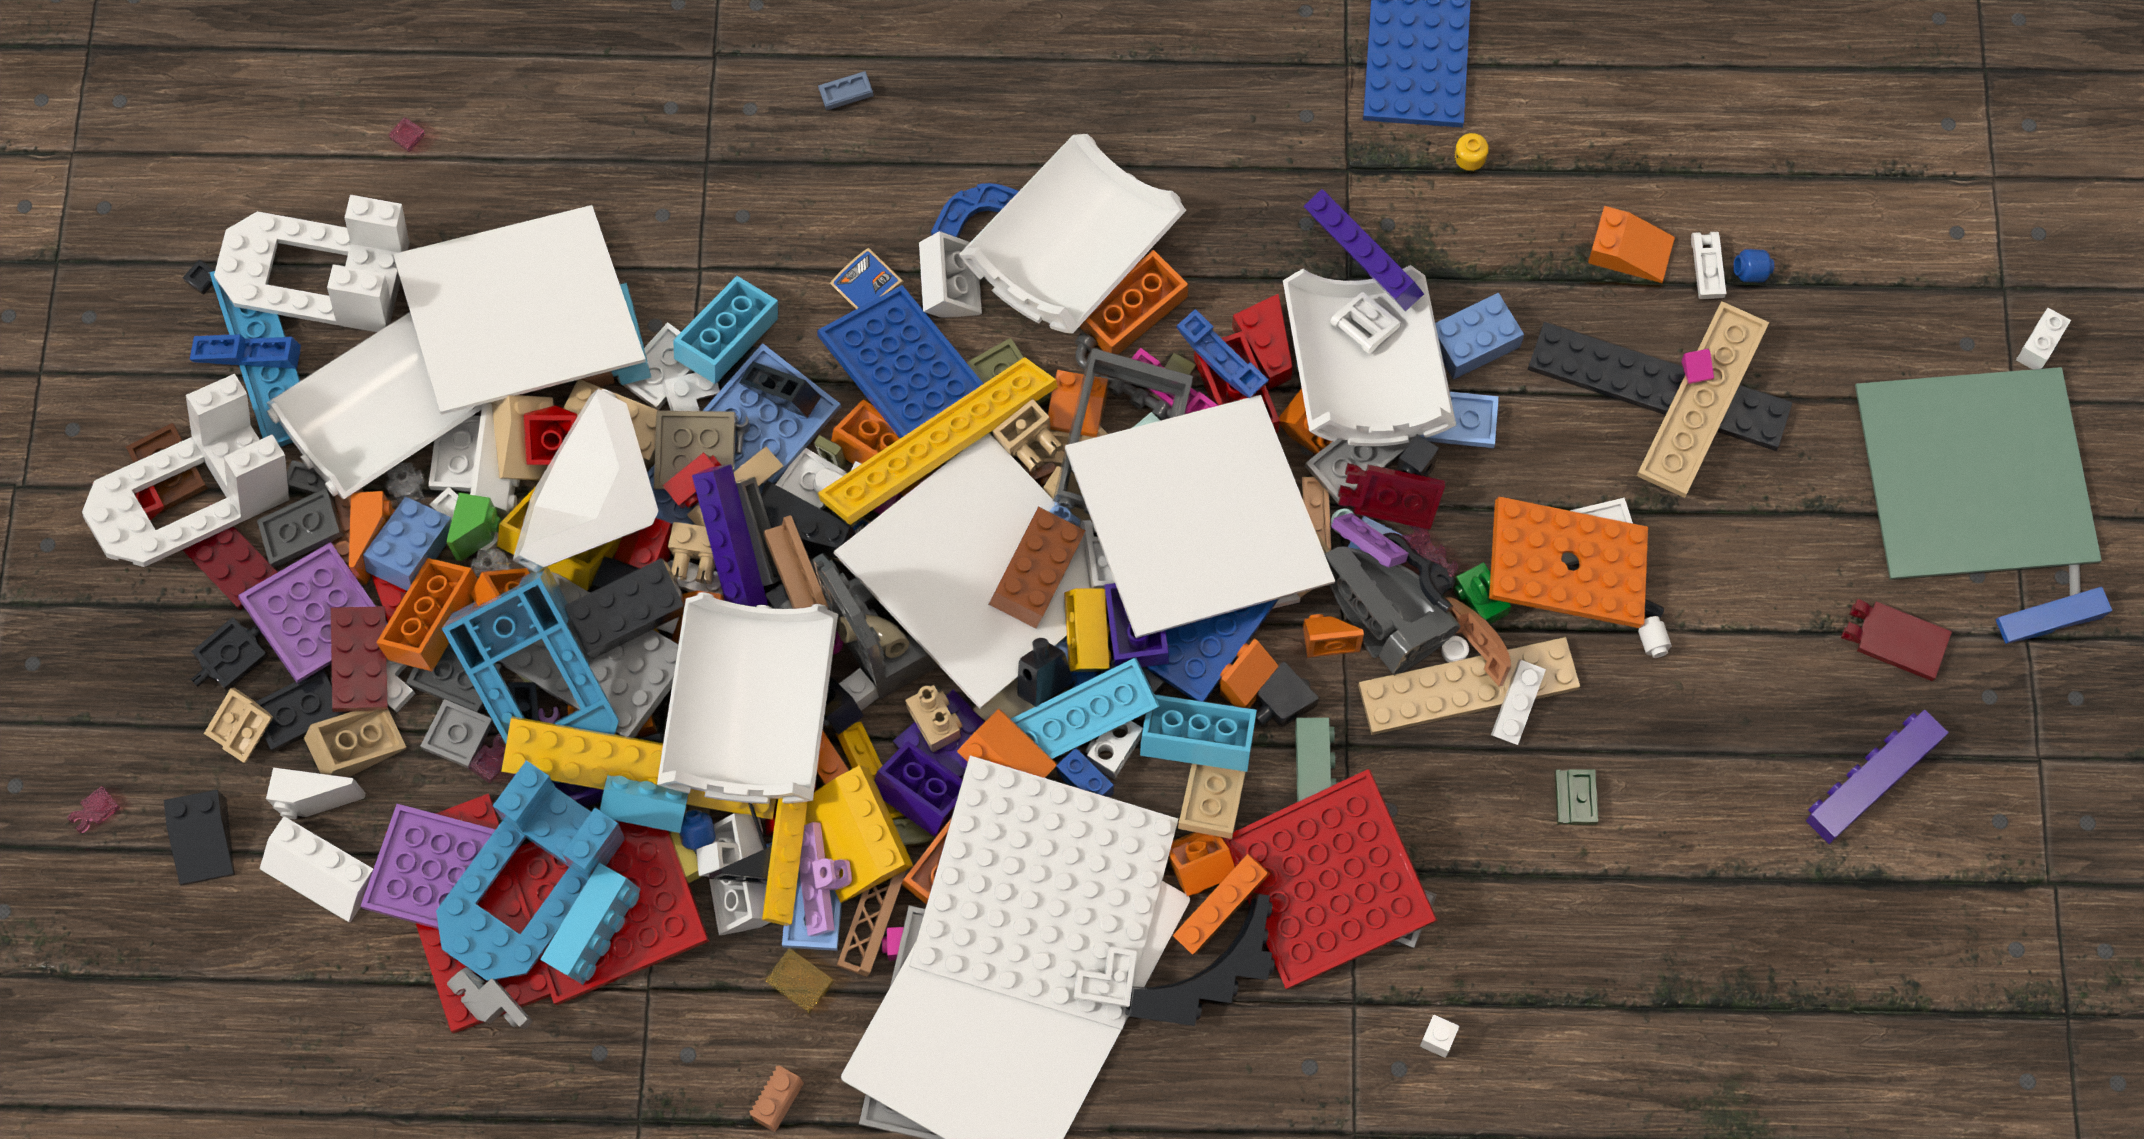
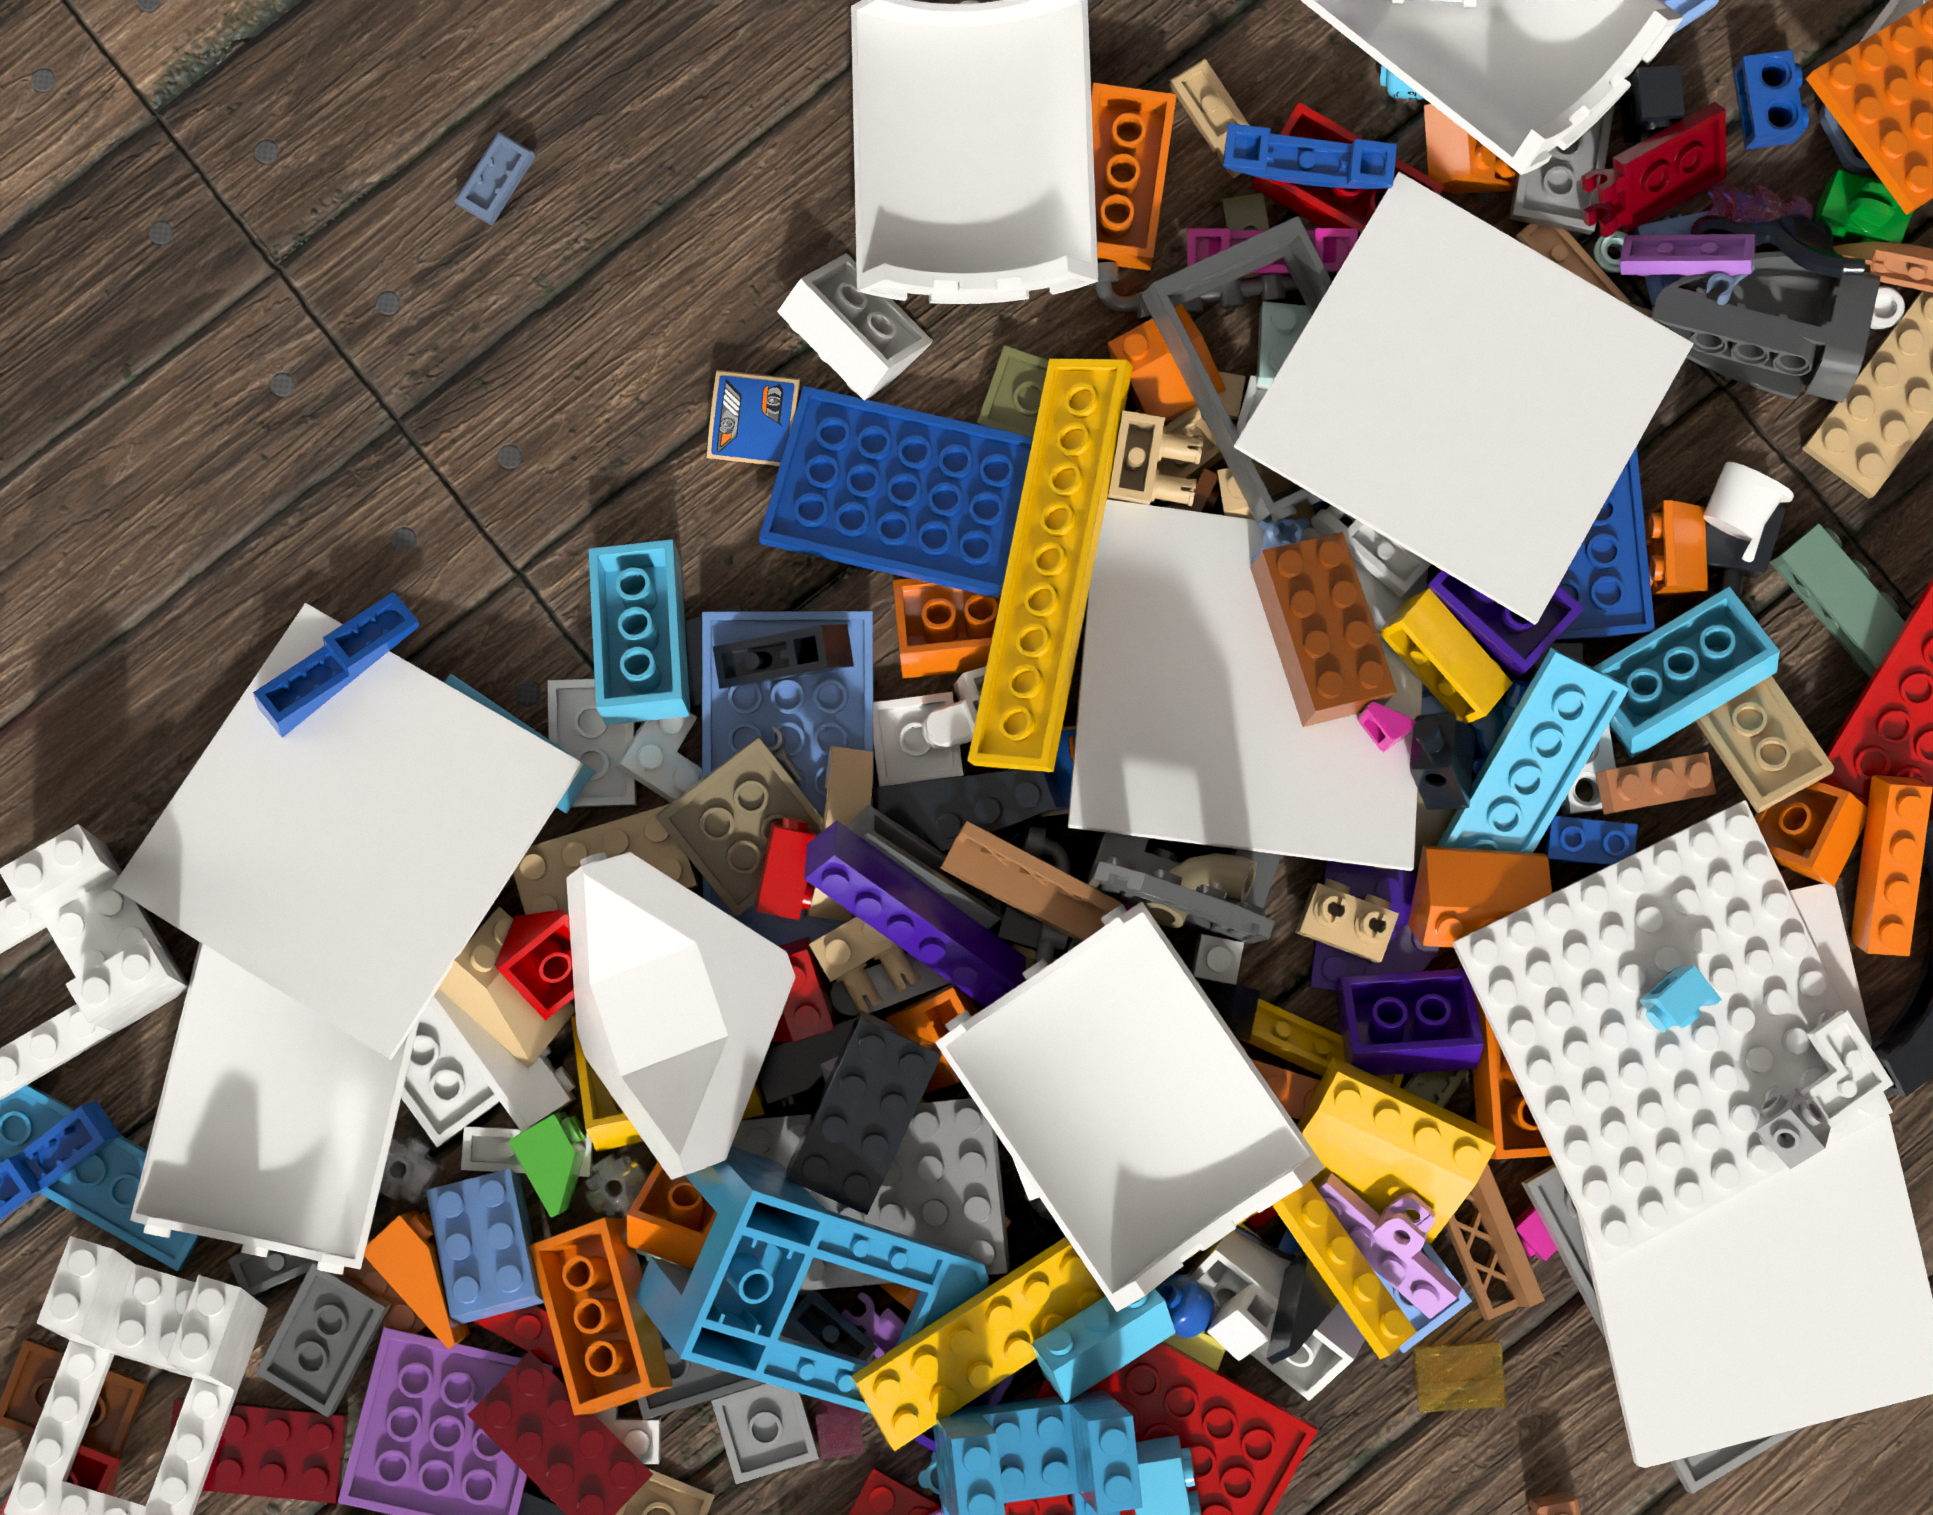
camera: 40 degrees left, 15 degrees up
(588, 237) = (345, 656): none -> blue slope
(831, 452) = (917, 683): olive plate -> none
(968, 203) = (791, 201): blue plate -> none
(1026, 632) = (1385, 725): none -> dark pink slope
(1054, 871) = (1678, 998): none -> medium azure brick
(1057, 978) = (1792, 1127): none -> light grey brick
(1142, 776) = (1655, 783): none -> nougat plate
(1207, 301) = (1208, 105): none -> tan hinge
(1267, 339) = (1328, 83): red wedge -> none
(1294, 674) = (1744, 504): none -> white hat
(1330, 636) = (1726, 416): orange slope -> none
(1374, 566) = (1726, 283): none -> sand blue hand
(1477, 506) = (1758, 99): none -> blue brick

